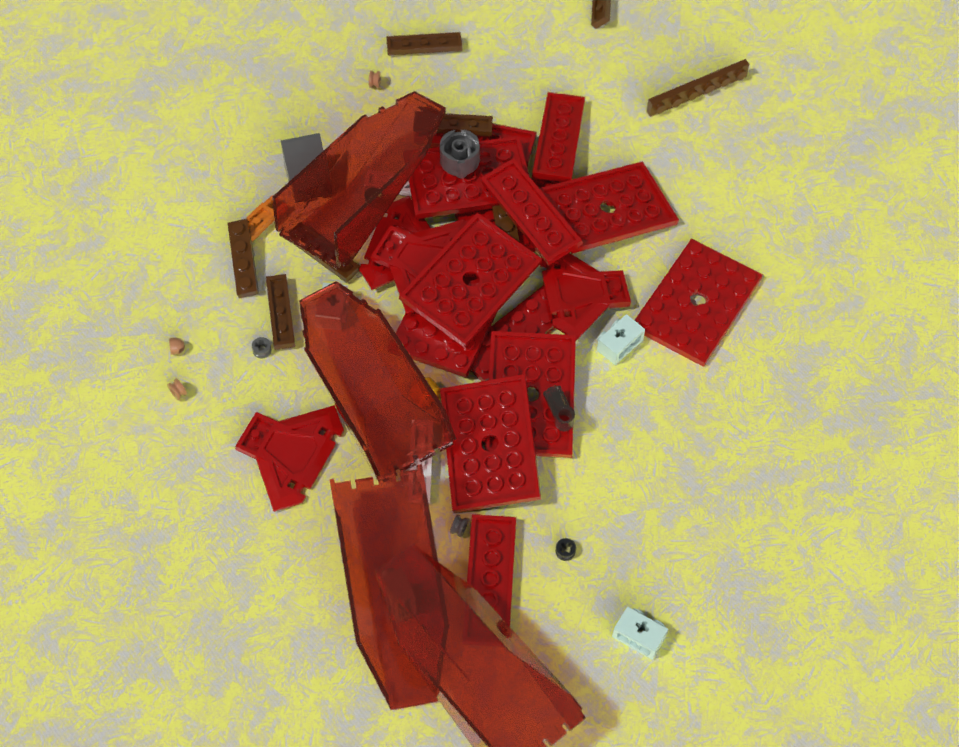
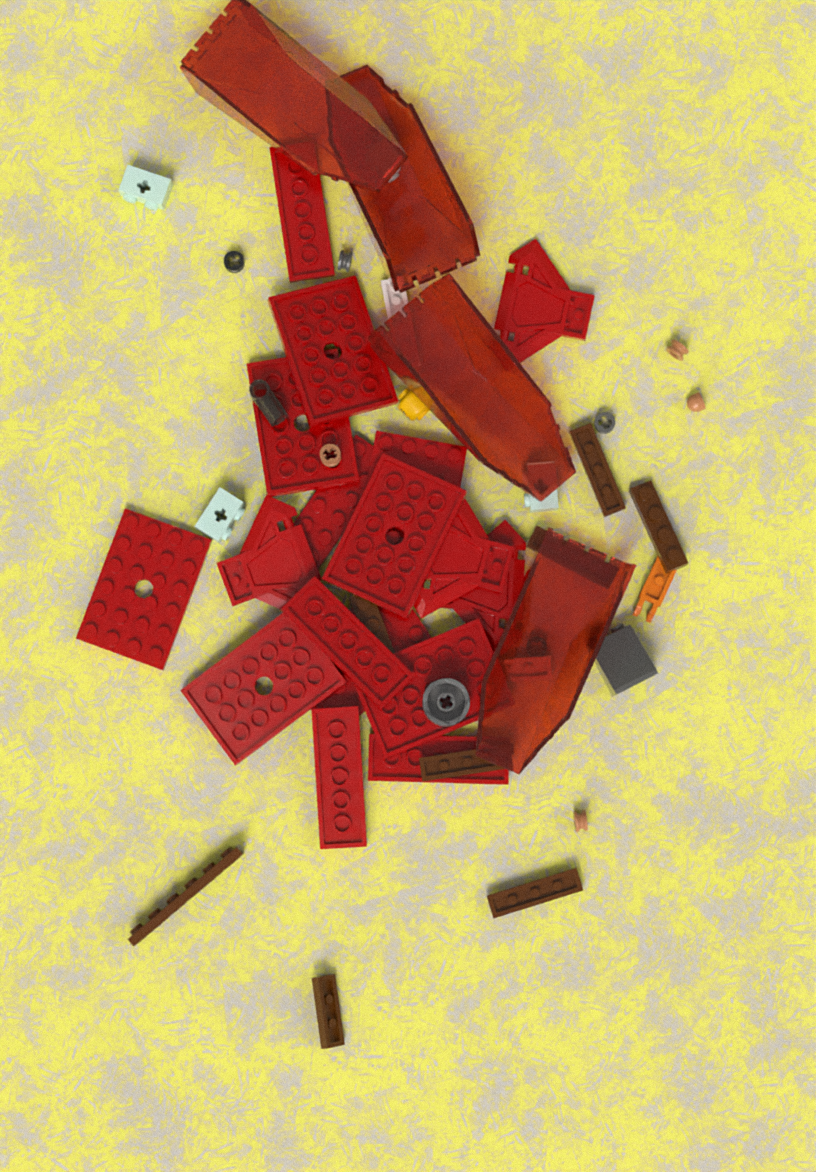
camera: 170 degrees right, 25 degrees up
(511, 347) = (329, 448): none -> nougat bush

